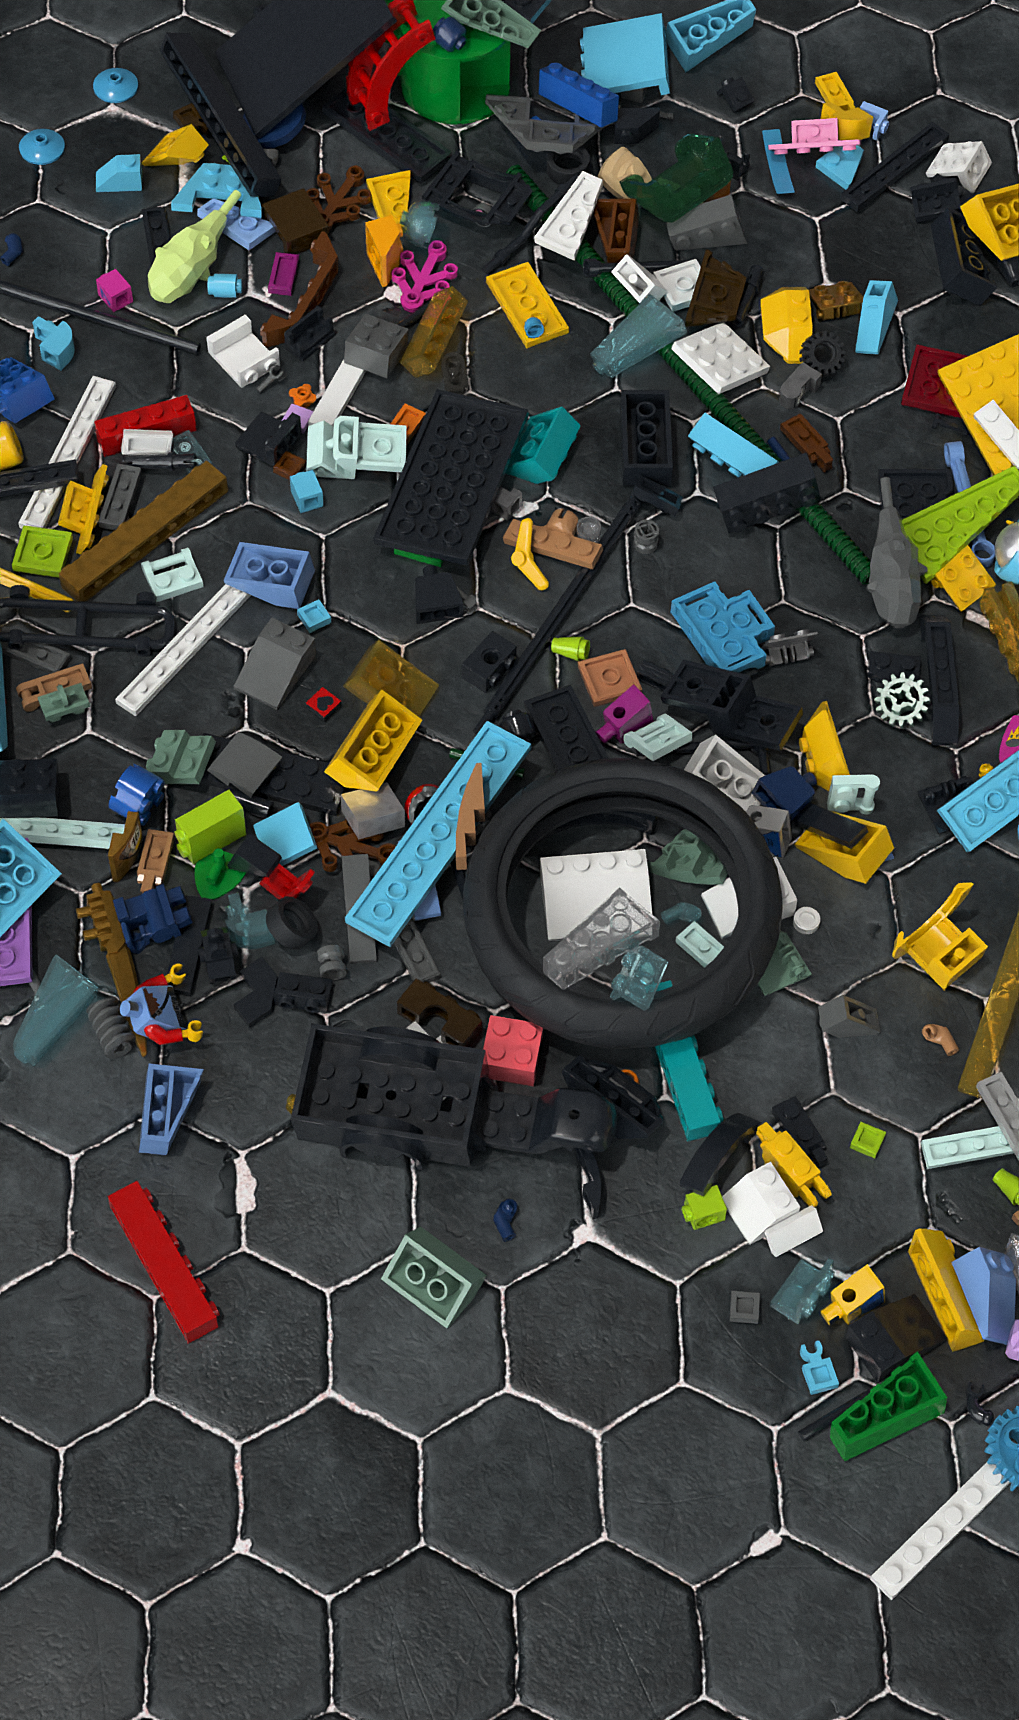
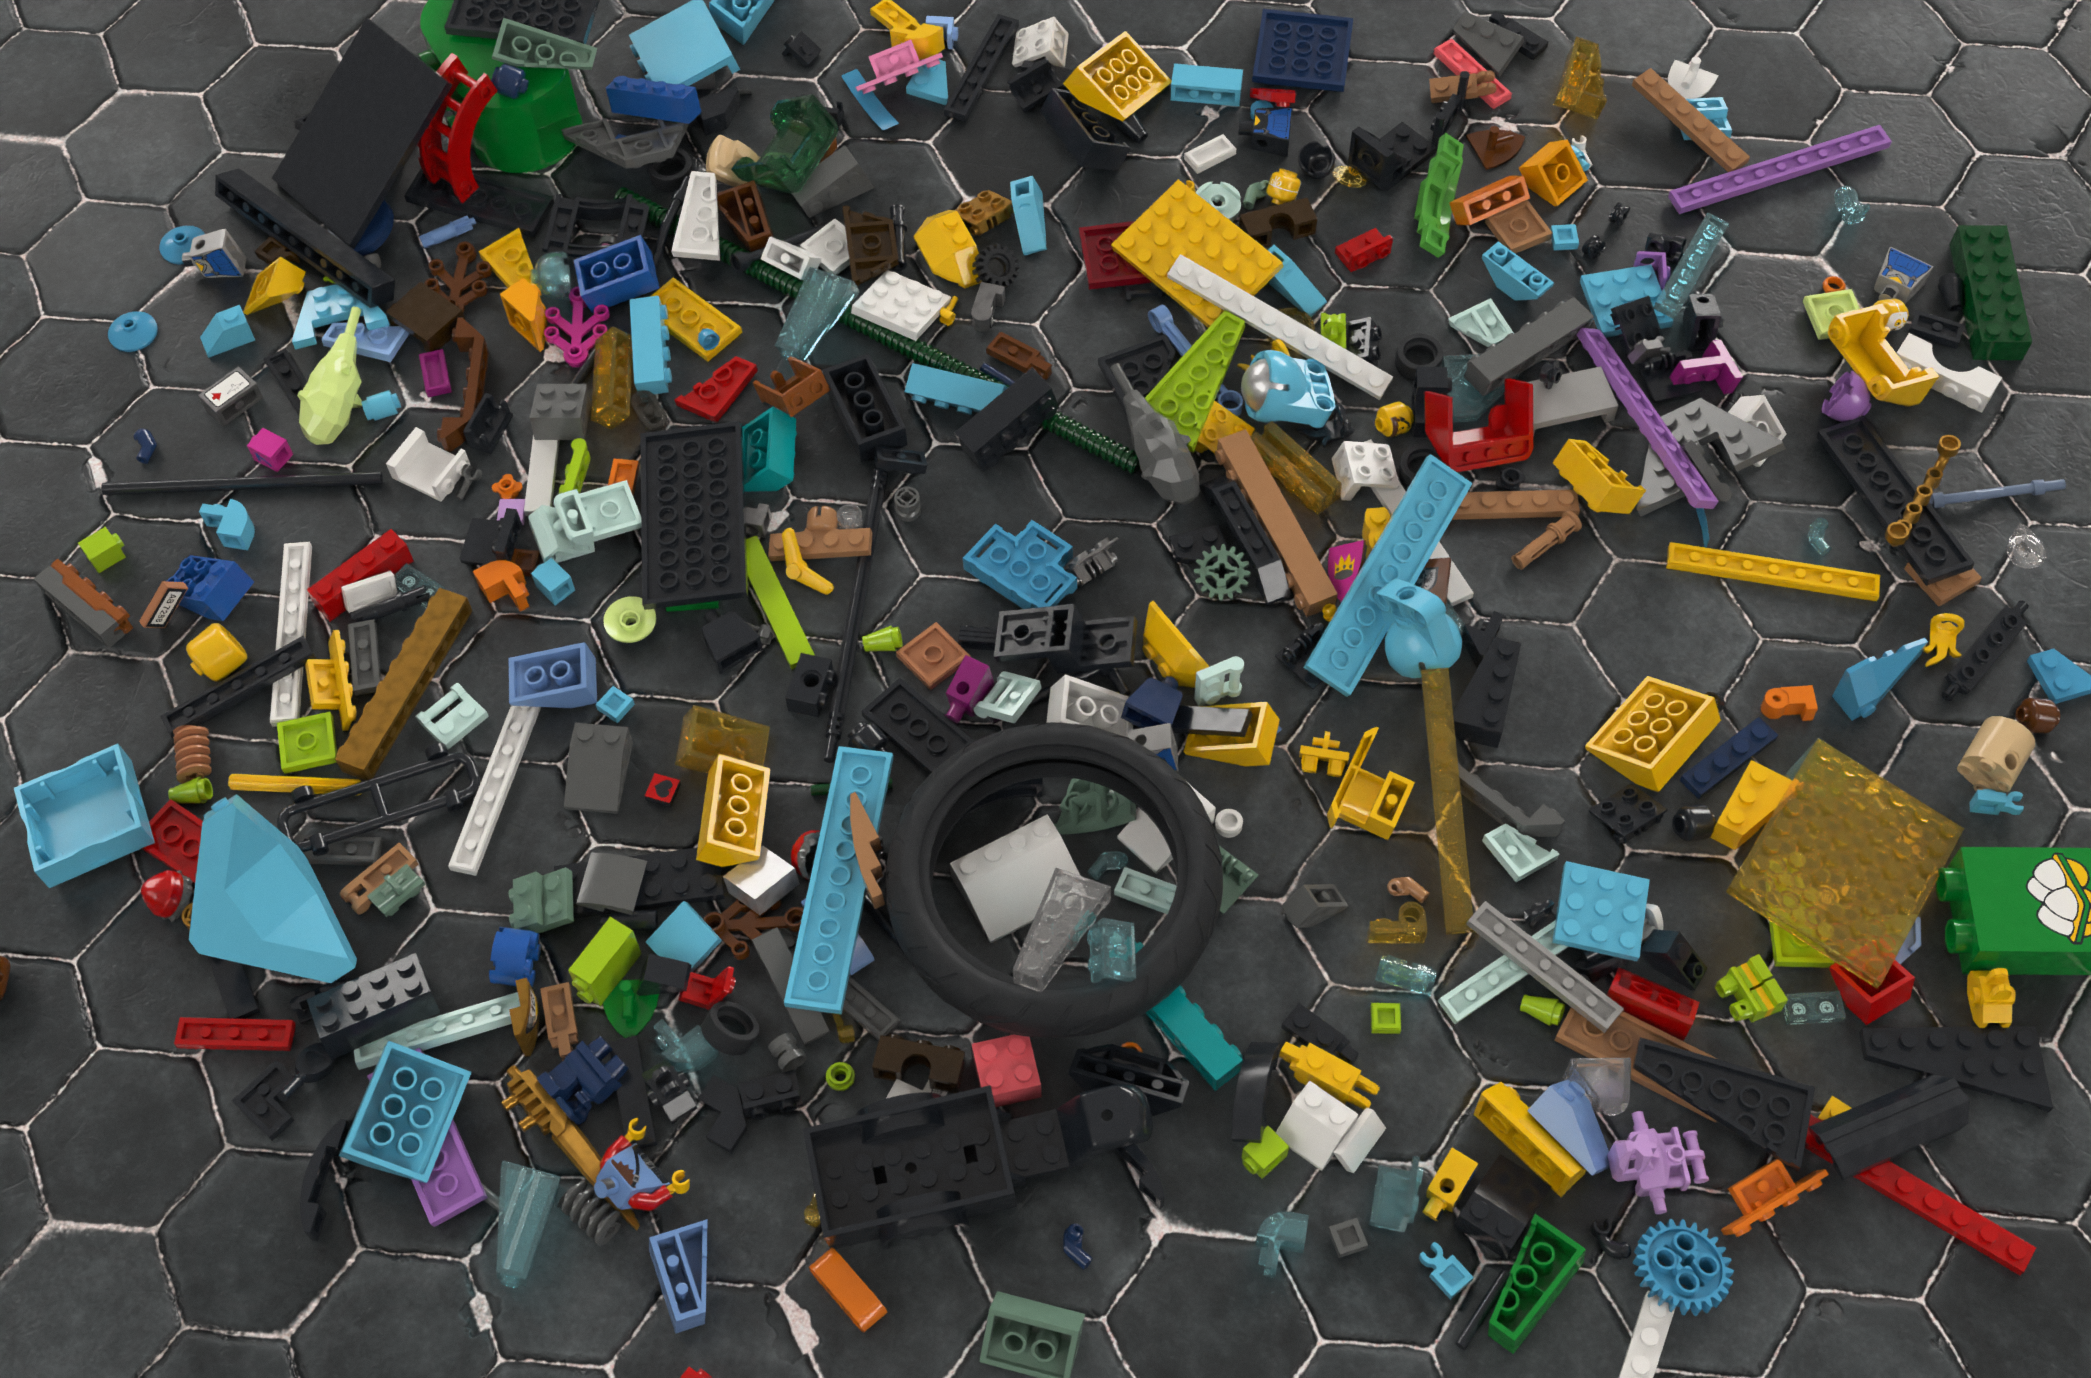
camera: 20 degrees left, 0 degrees up
(100, 232) = (230, 396): none -> flat silver brick
(138, 104) = (216, 255): none -> light grey torso
(263, 472) = (500, 579): none -> orange brick
(296, 1175) = (847, 1289): none -> orange beam
(352, 151) = (447, 231): none -> medium blue piece
(357, 540) = (627, 611): none -> yellowish green dish
(368, 993) = (840, 1068): none -> lime plate
(369, 402) = (577, 469): none -> lime plate
(389, 966) = (845, 1033): none -> clear yellow hand
(477, 240) = (616, 273): none -> blue brick
(479, 314) = (649, 345): none -> medium azure brick
(491, 579) = (775, 603): none -> lime tile
(523, 378) = (720, 391): none -> red wing
(592, 402) = (798, 391): none -> dark orange window
(685, 1277) = (1277, 1232): none -> clear light blue brick
(760, 380) = (947, 316): none -> yellow hand
(898, 1107) = (1414, 977): none -> clear light blue hinge
(916, 1070) = (1400, 930): none -> clear yellow plate
(929, 901) = (1311, 755): none -> yellow hips
(973, 673) = (1301, 566): none -> medium nougat brick

